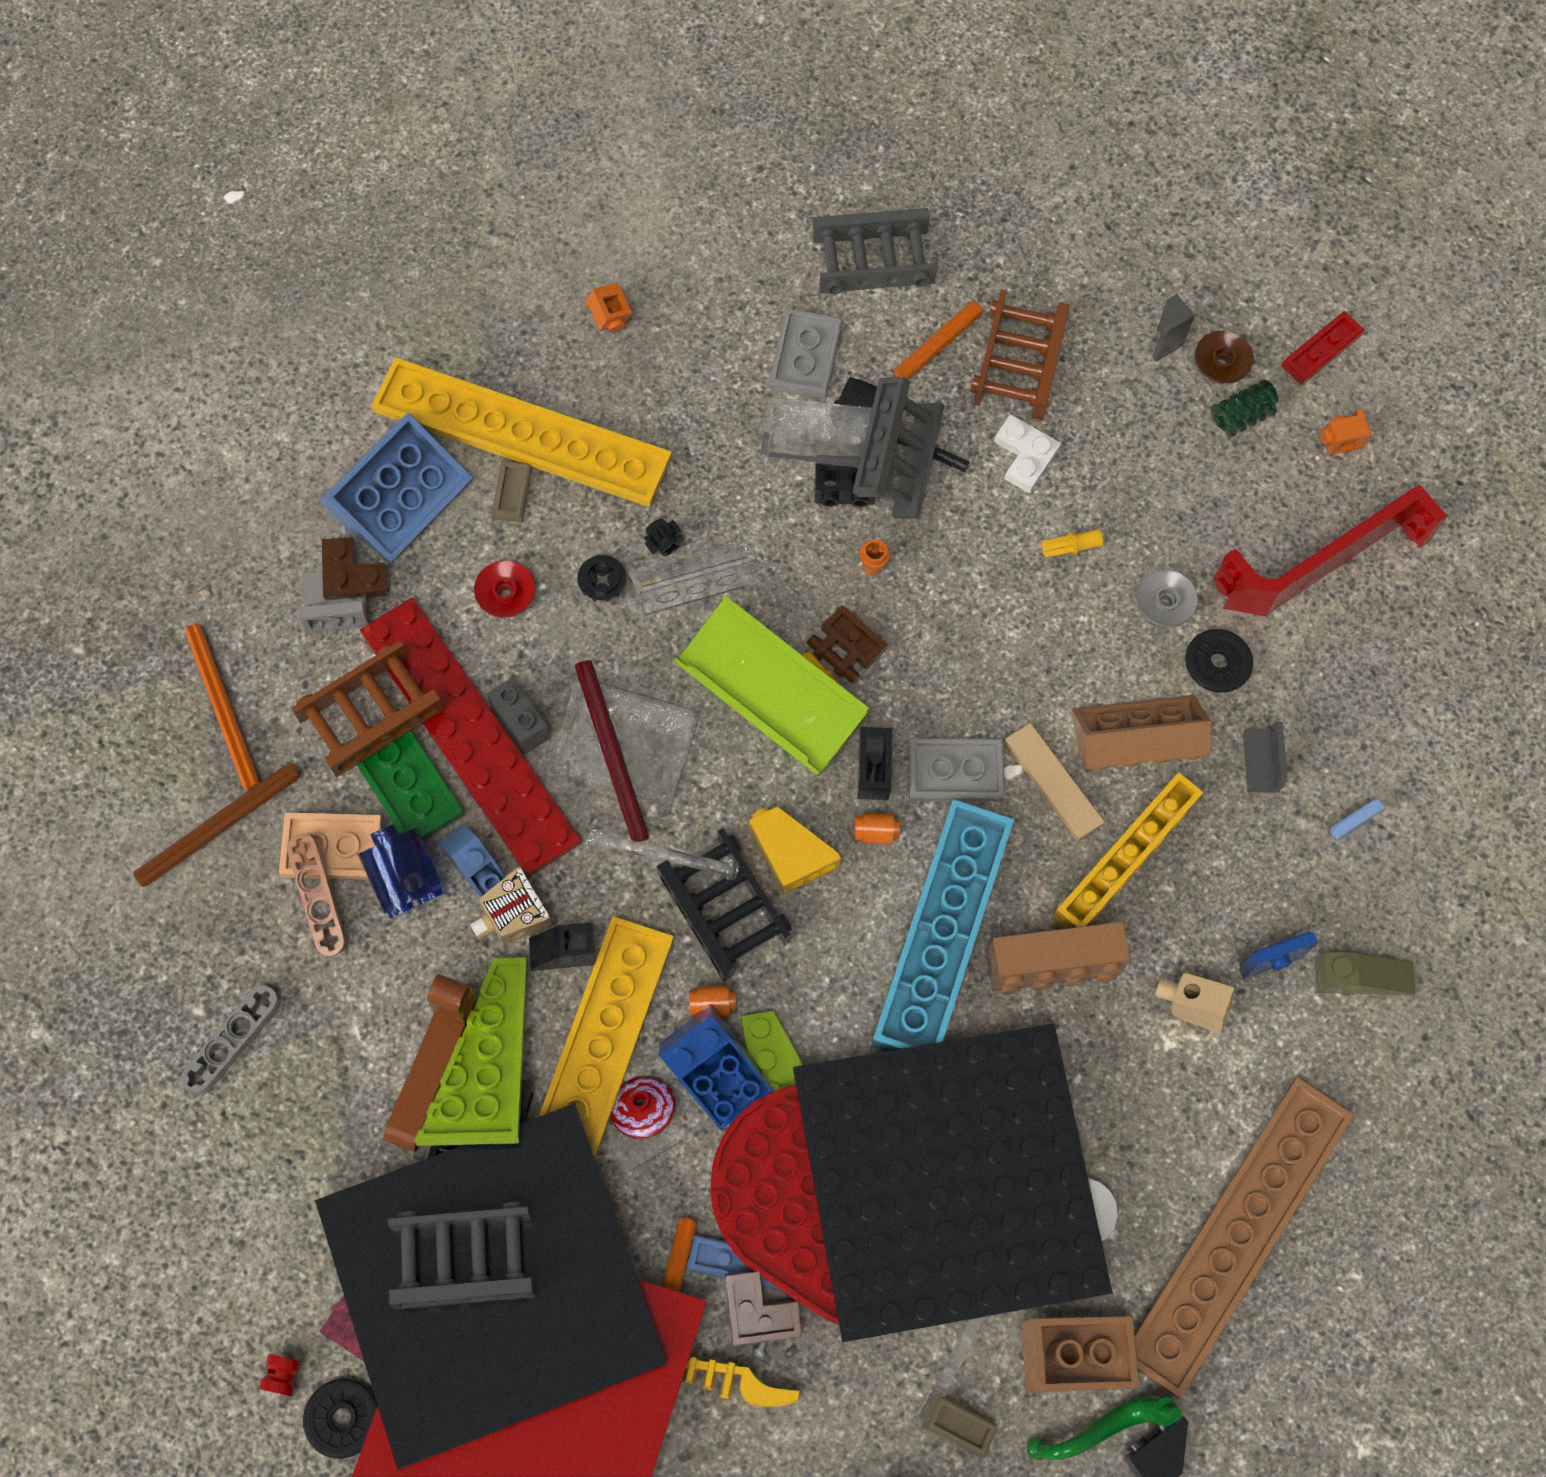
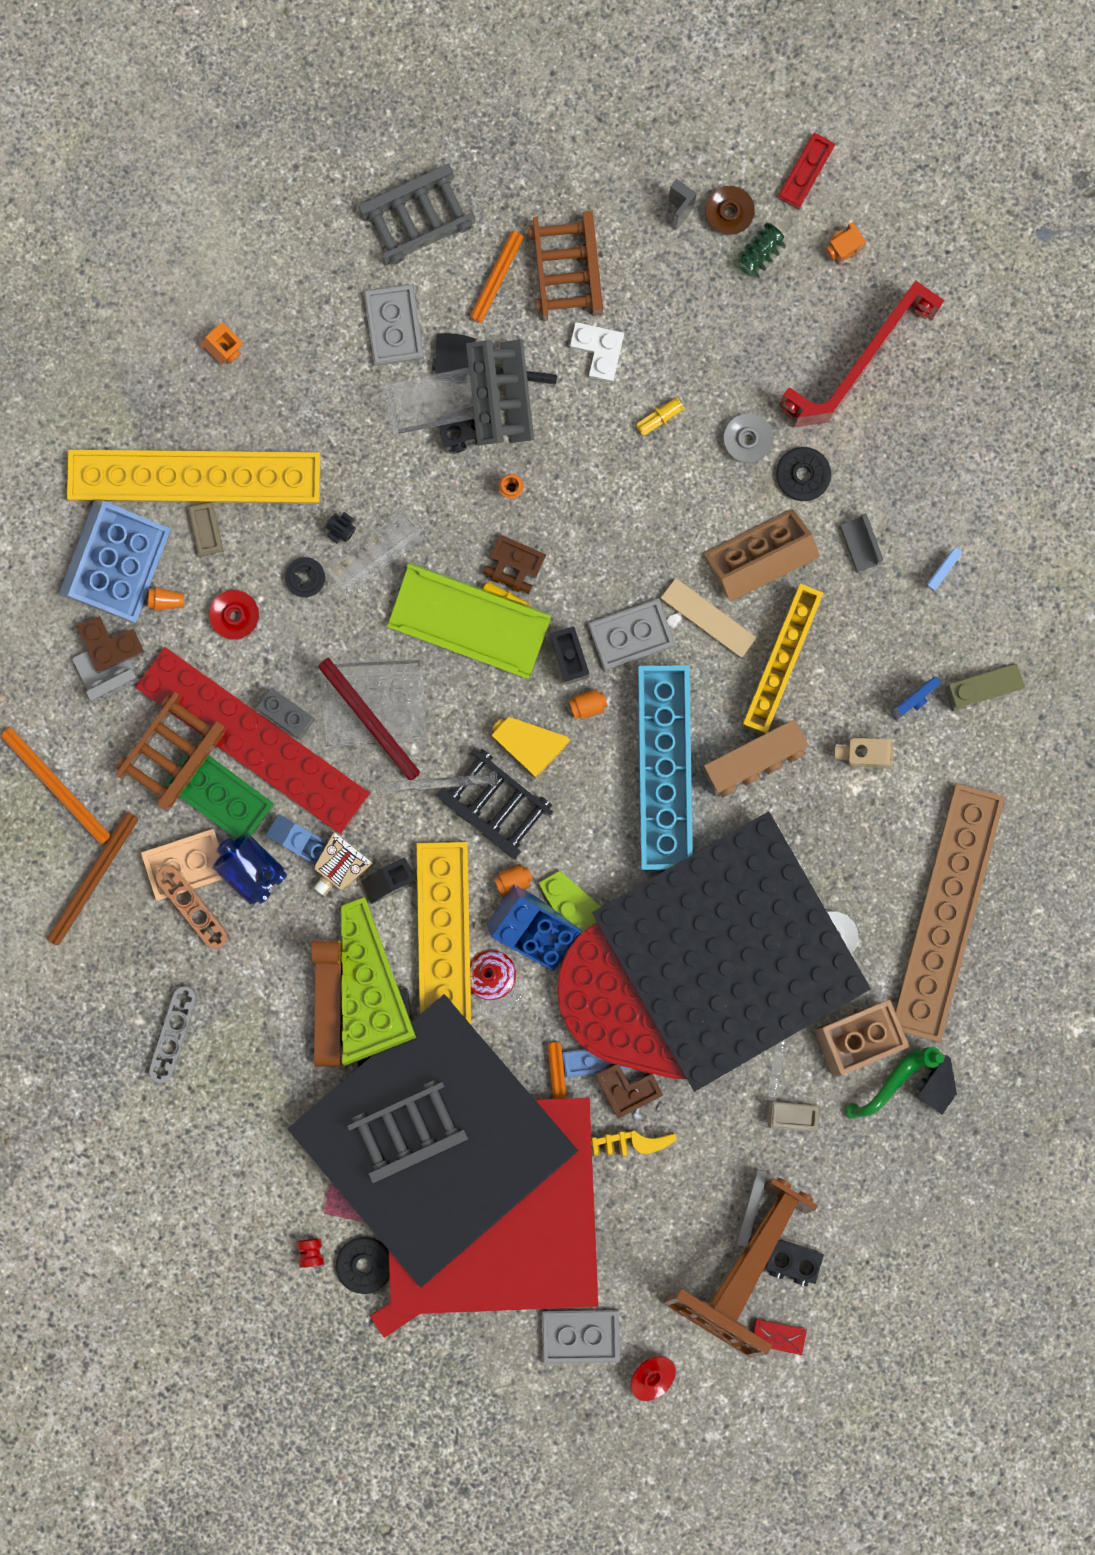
camera: 20 degrees left, 15 degrees up
(433, 547) = (164, 599): none -> orange cone

